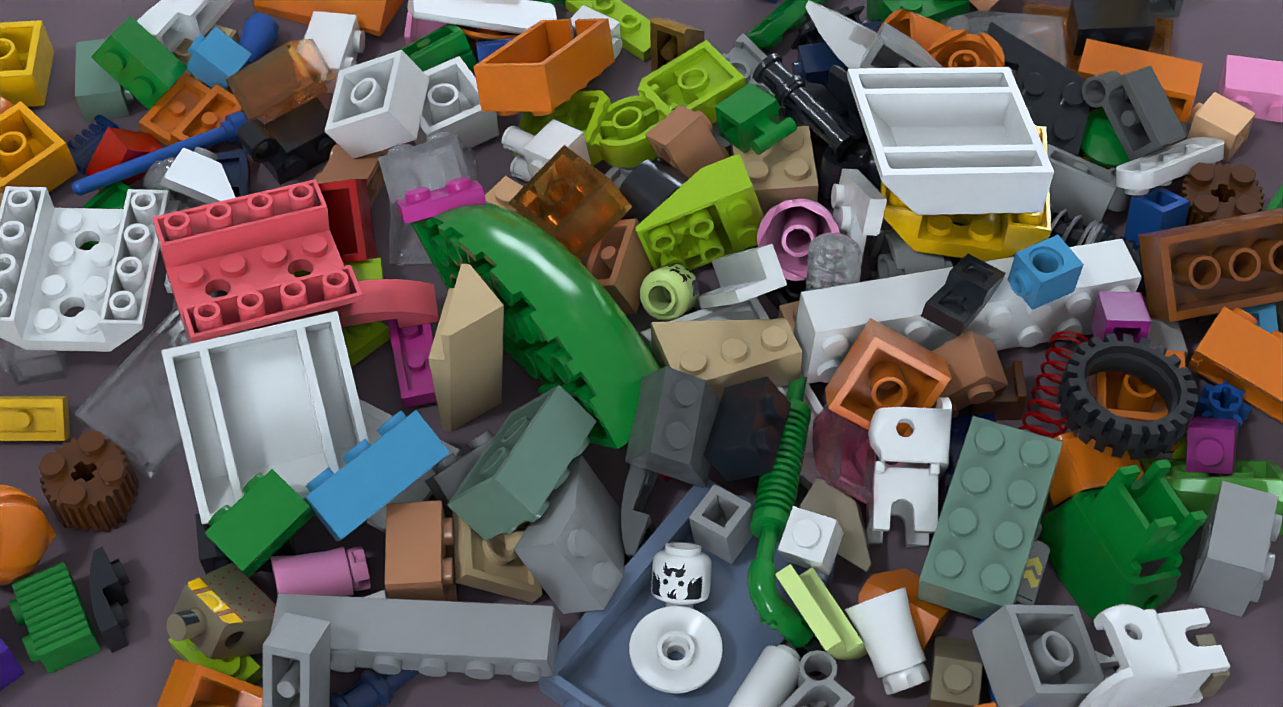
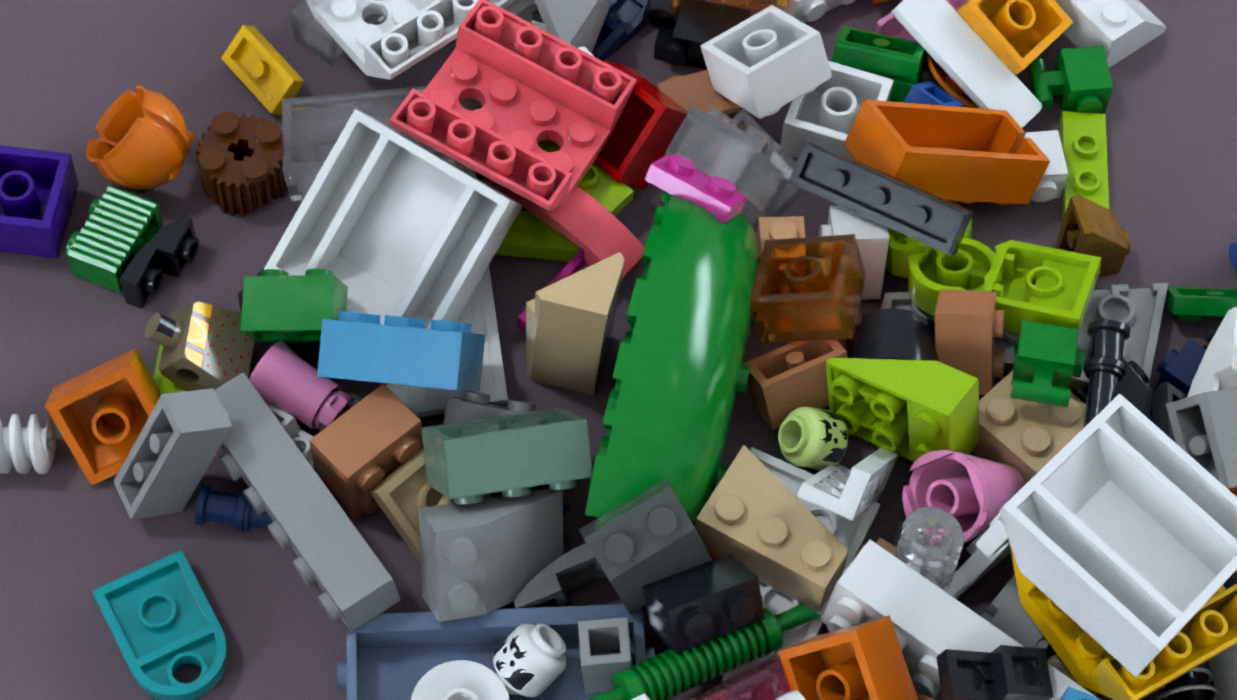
camera: 45 degrees right, 5 degrees up
(551, 111) = (880, 197): none -> black tile

